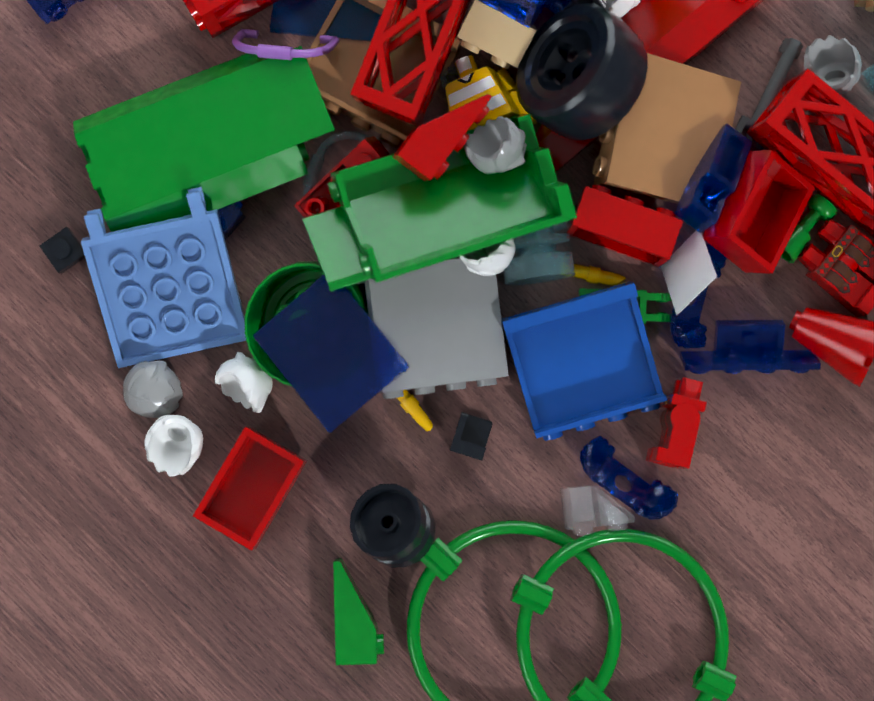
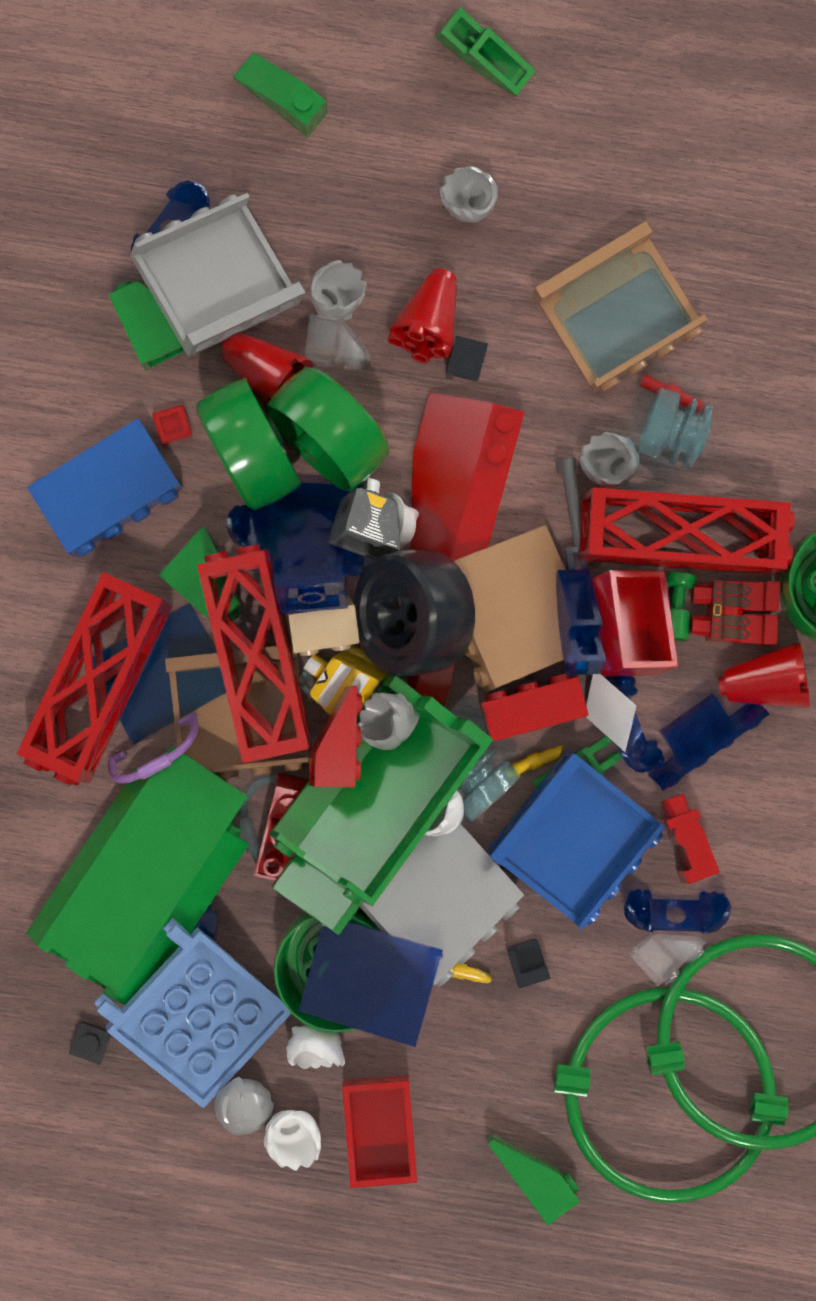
camera: 30 degrees left, 0 degrees up
(392, 525) = (515, 1082): black wheel -> none

